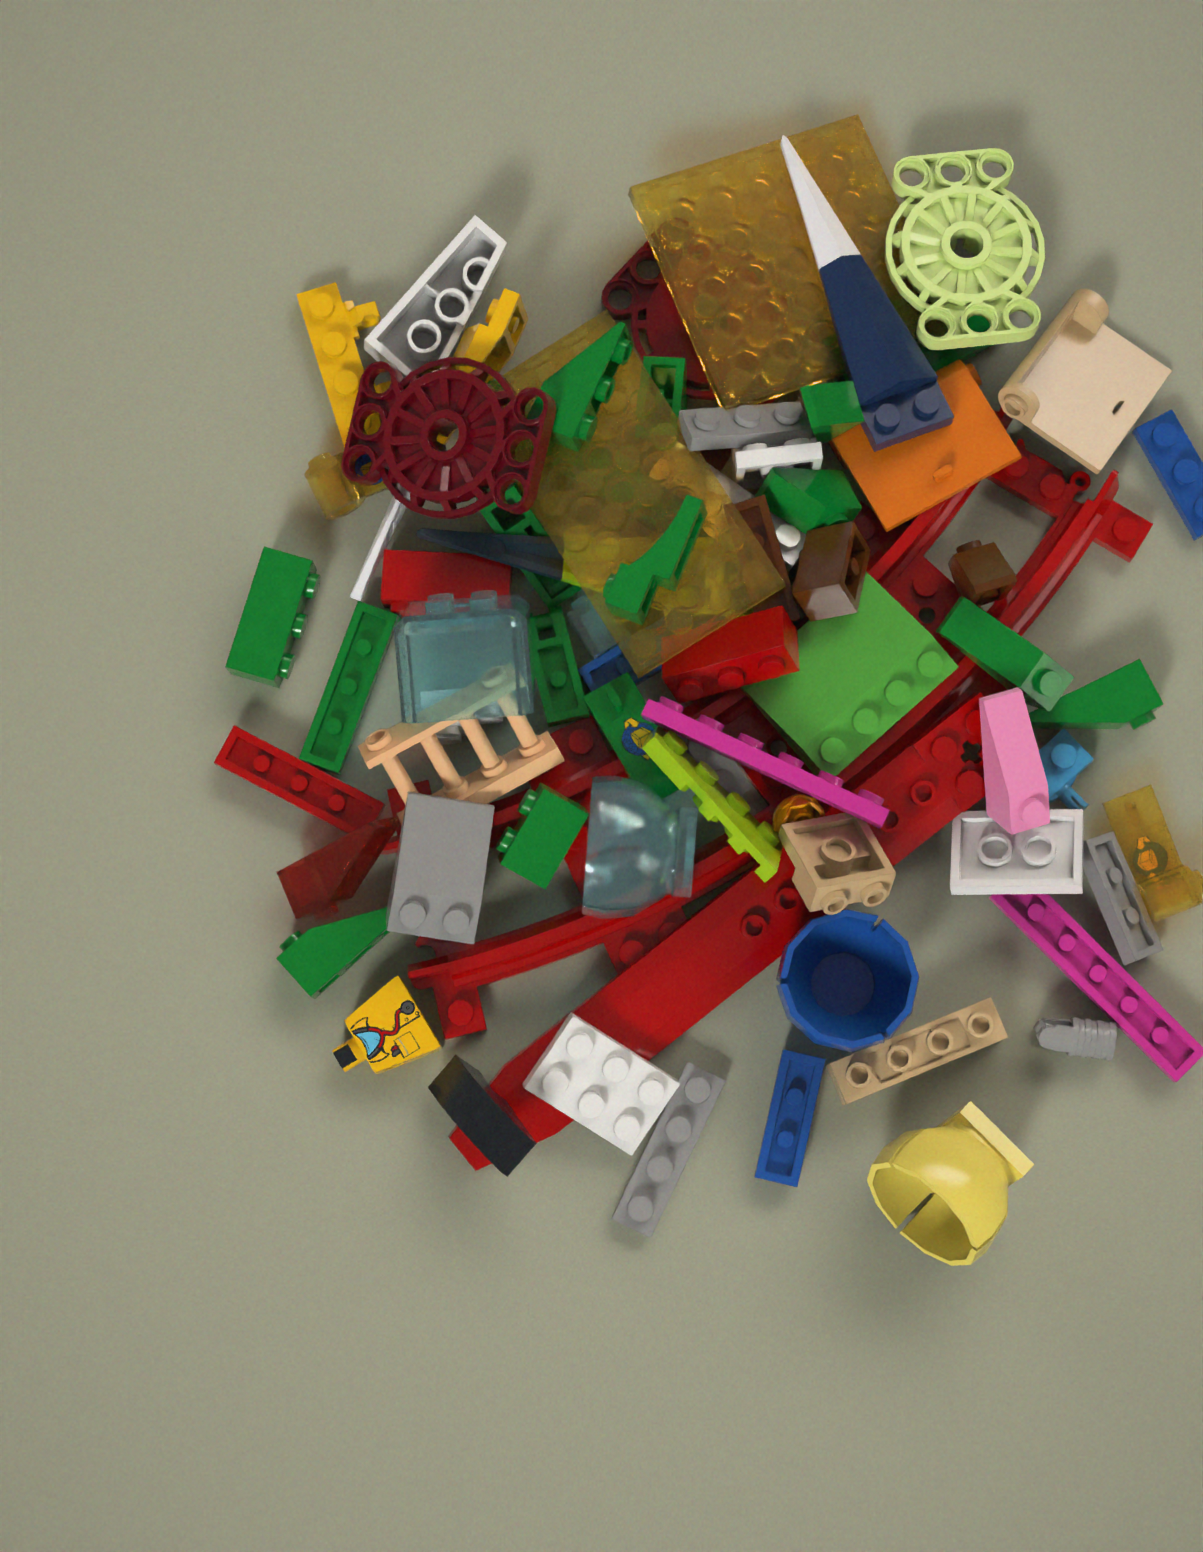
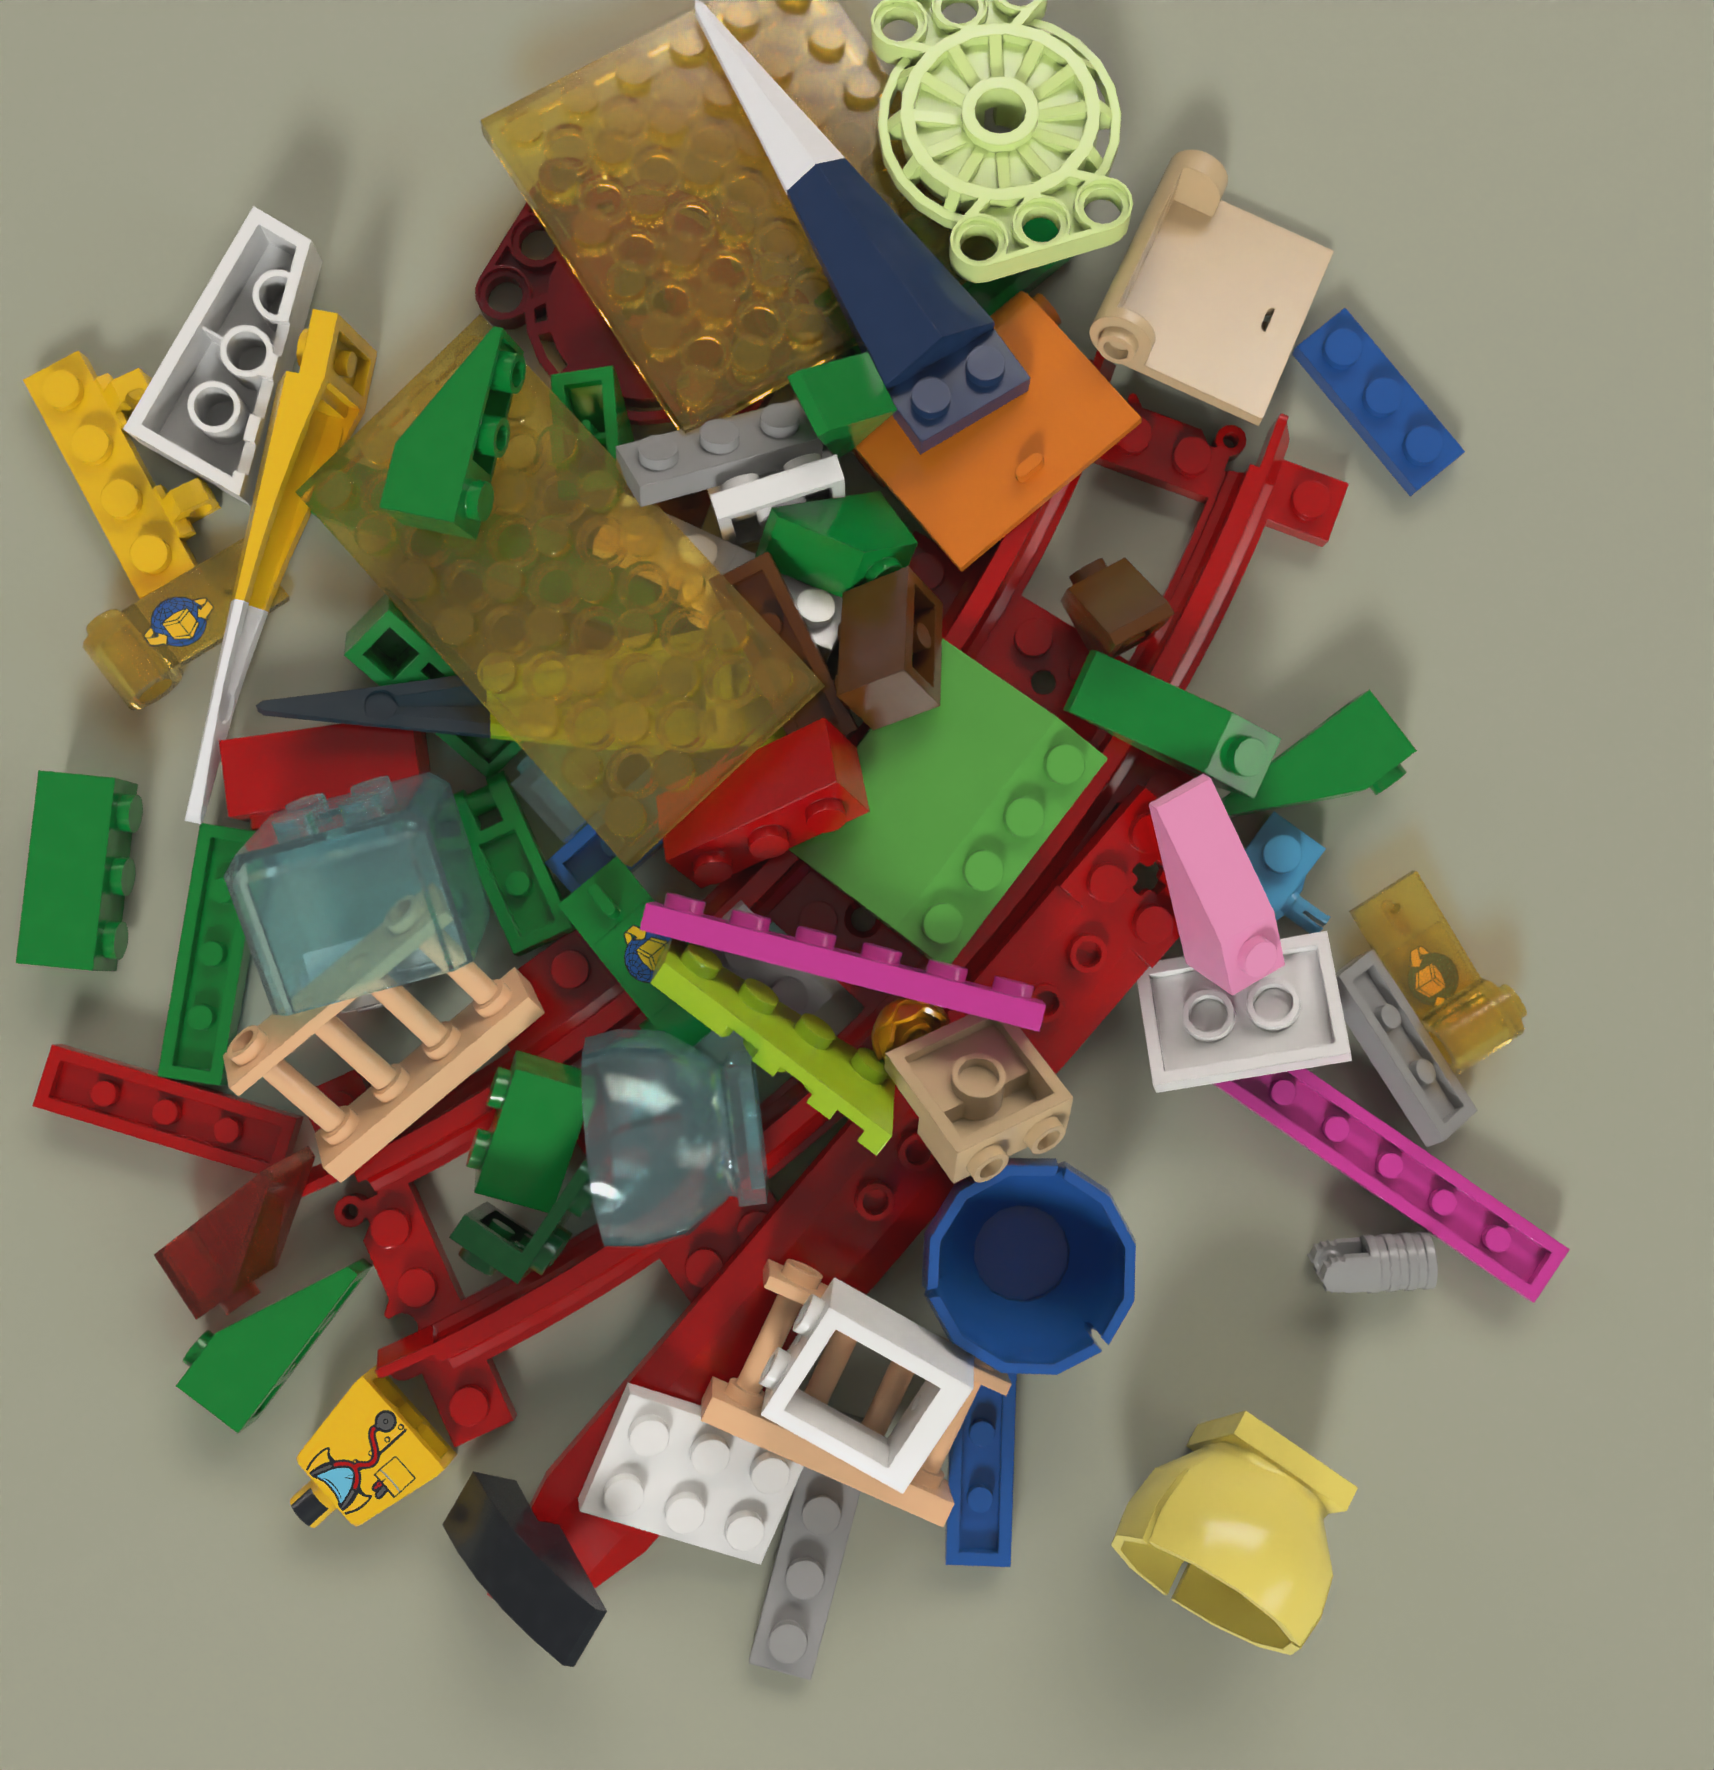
camera: 15 degrees left, 5 degrees up
(437, 403) = (266, 502): dark red piece -> none
(440, 868) = (384, 1216): light grey slope -> none
(509, 902) = (500, 1243): none -> dark green bracket
(635, 585) = (594, 734): green slope -> none
(715, 1086) = (738, 1404): none -> light nougat fence
(760, 1066) = (941, 1363): none -> white window
(917, 1051) = (1161, 1329): tan brick -> none

